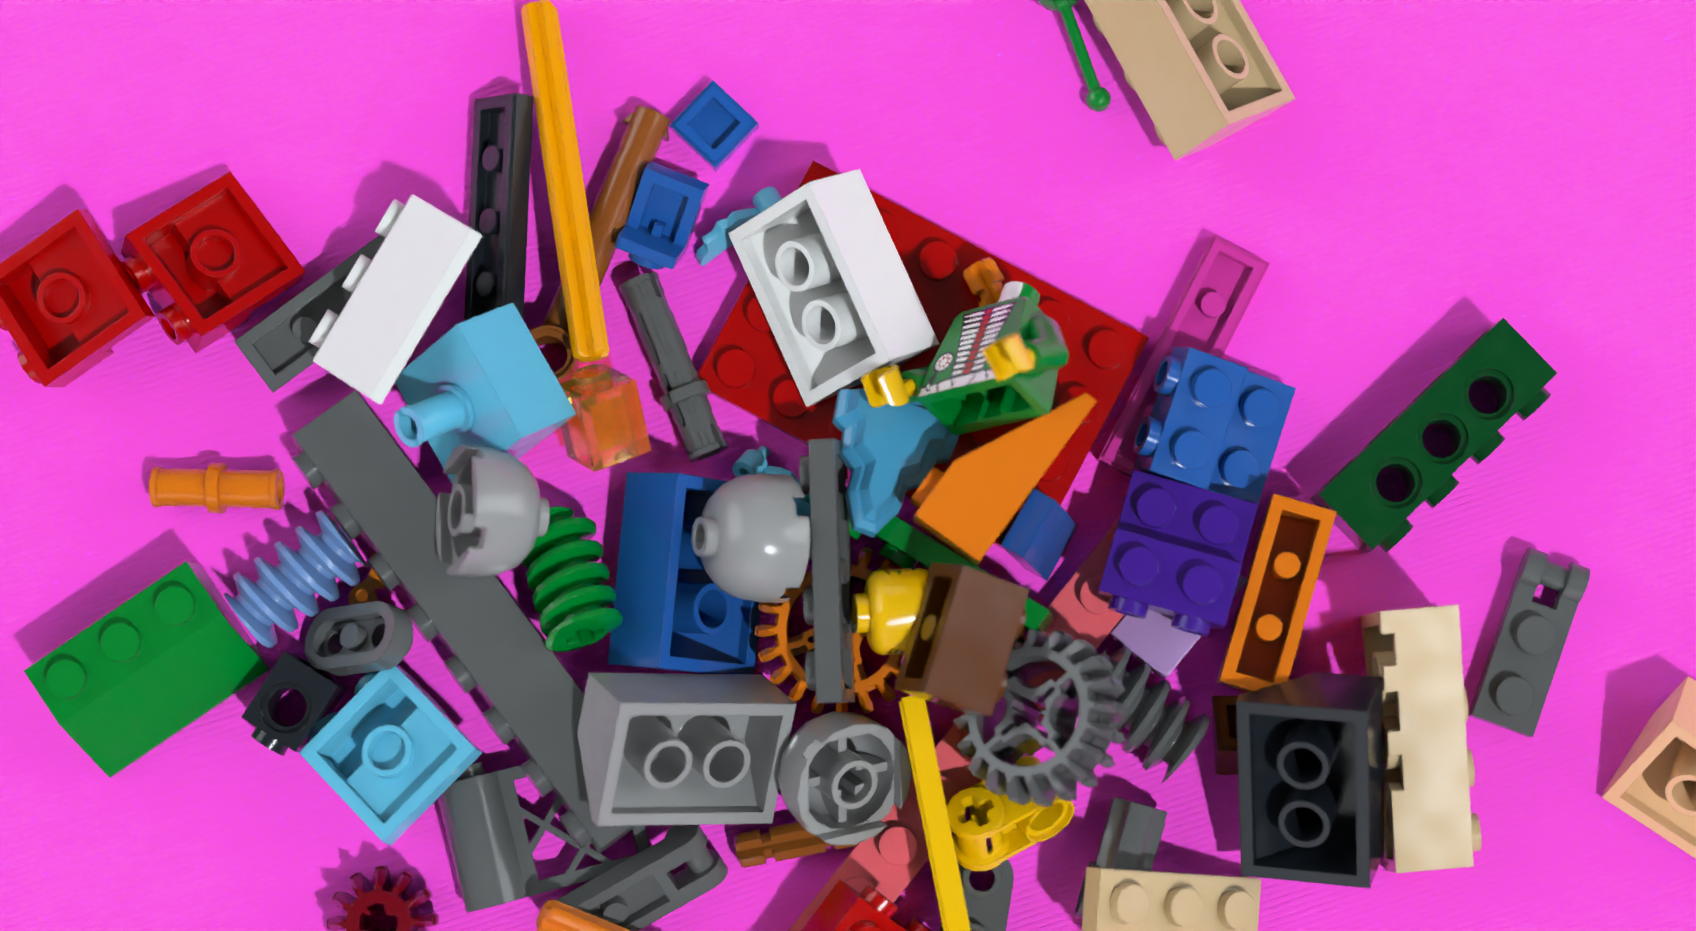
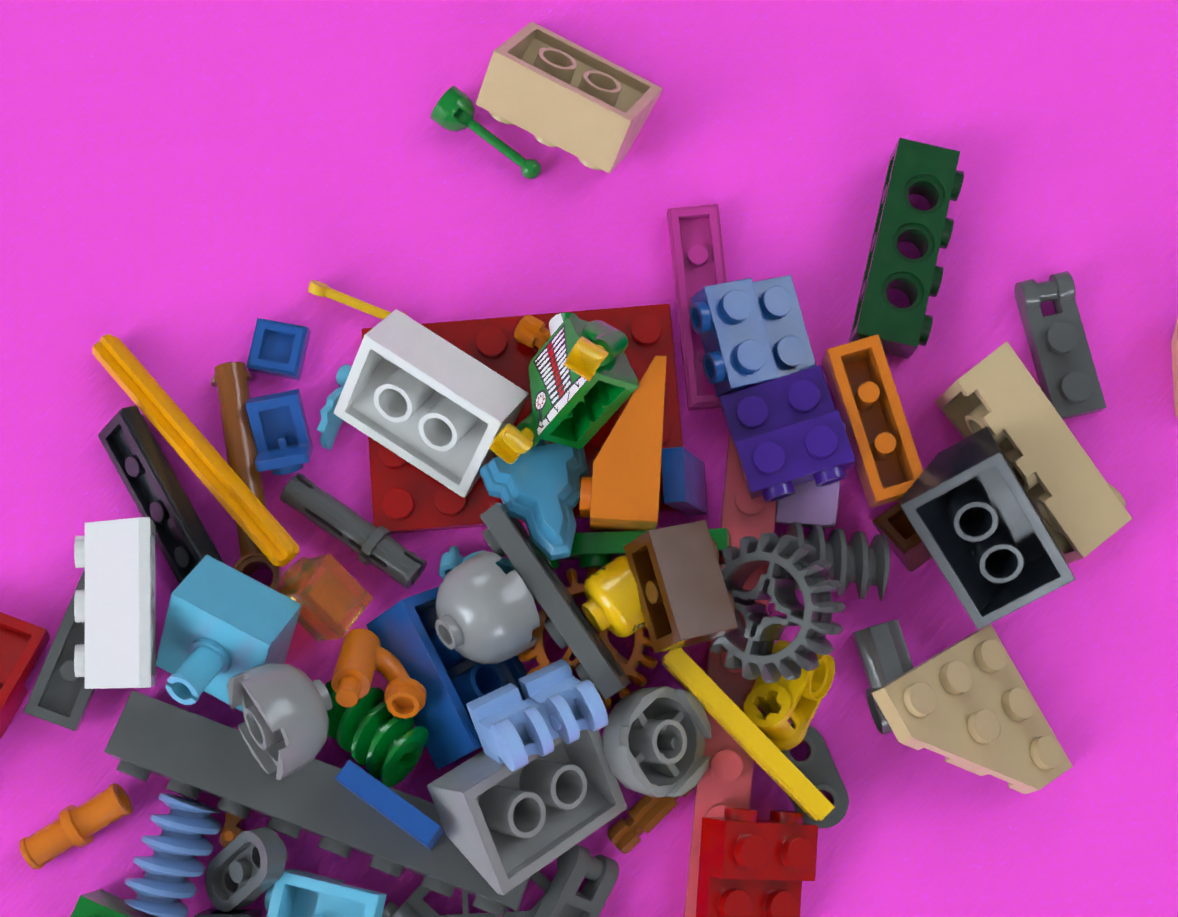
camera: 35 degrees left, 5 degrees down
(541, 668) = (390, 805): none -> blue tile
(587, 513) = (355, 668): none -> orange plant
(759, 677) = (553, 708): none -> light blue legs
(798, 91) = (323, 290): none -> yellow hinge

